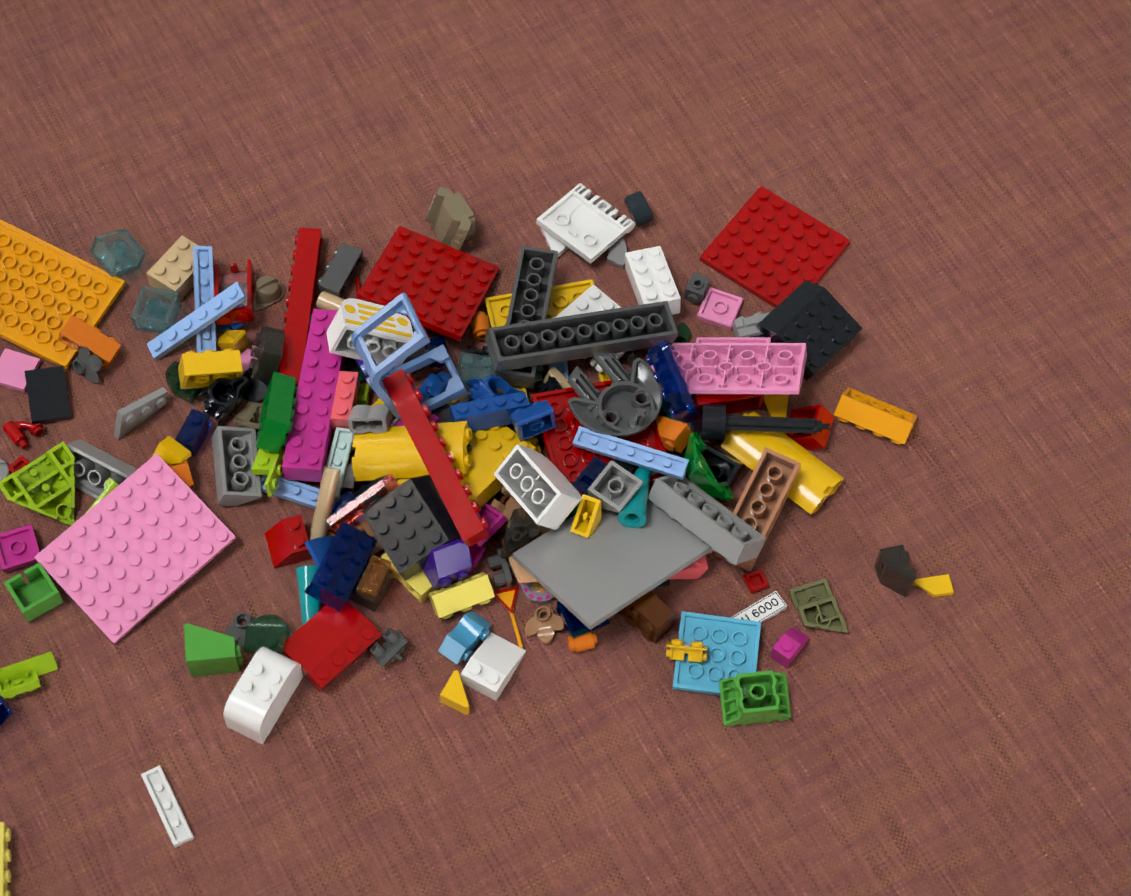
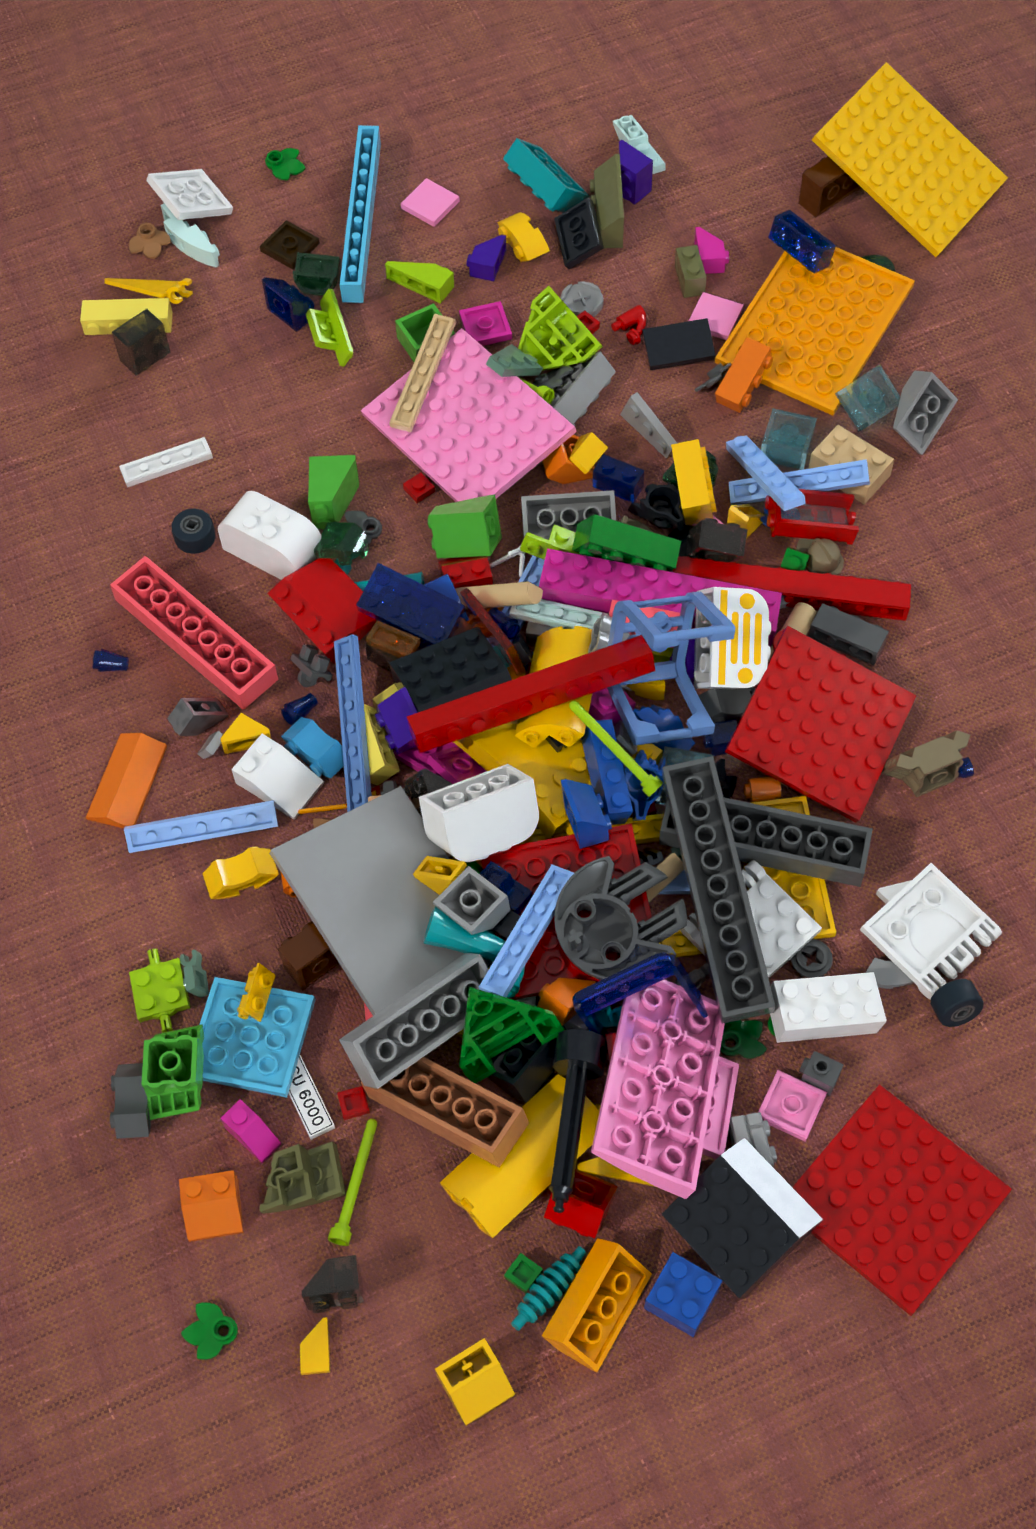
camera: 100 degrees right, 0 degrees up
(34, 840) = (141, 342): none -> clear smoke brick
(77, 510) = (513, 362): none -> sand green wing
(85, 583) = (422, 373): none -> tan tile
(86, 486) = (553, 378): none -> dark grey plate
(125, 214) = (922, 409): none -> light grey slope
(197, 588) = (419, 487): none -> red plate
(253, 537) = (465, 528): none -> bright green slope
(253, 773) = (193, 531): none -> black wheel
(264, 503) = (511, 554): none -> white plant
(274, 307) = (795, 559): none -> green plate
(358, 747) = (194, 632): none -> coral brick
(387, 819) = (109, 661): none -> clear blue cone
(429, 658) = (298, 708): none -> clear blue cone
(440, 735) = (196, 715): none -> flat silver slope
(452, 604) = (352, 721): none -> medium blue tile
(466, 719) = (210, 745): none -> light grey tile
(500, 380) = (649, 782): none -> lime piece
(501, 786) = (126, 780): none -> orange slope
(543, 717) = (201, 826): none -> light blue plate
(582, 679) = (230, 875): none -> yellow brick
(619, 296) = (823, 958): none -> dark grey gear
(675, 701) = (194, 976): none -> sand green plate
(685, 728) = (159, 990): none -> lime plate
(779, 730) = (131, 1104): none -> dark grey brick
(847, 664) = (211, 1205): none -> orange slope
(852, 577) = (340, 1233): none -> lime piece
(861, 364) = (683, 1294): none -> blue brick
(862, 460) = (523, 1273): none -> green plate
(870, 443) = (548, 1288): none -> teal piece
(935, 658) = (206, 1330): none -> green plate
(939, 483) = (474, 1381): none -> yellow slope

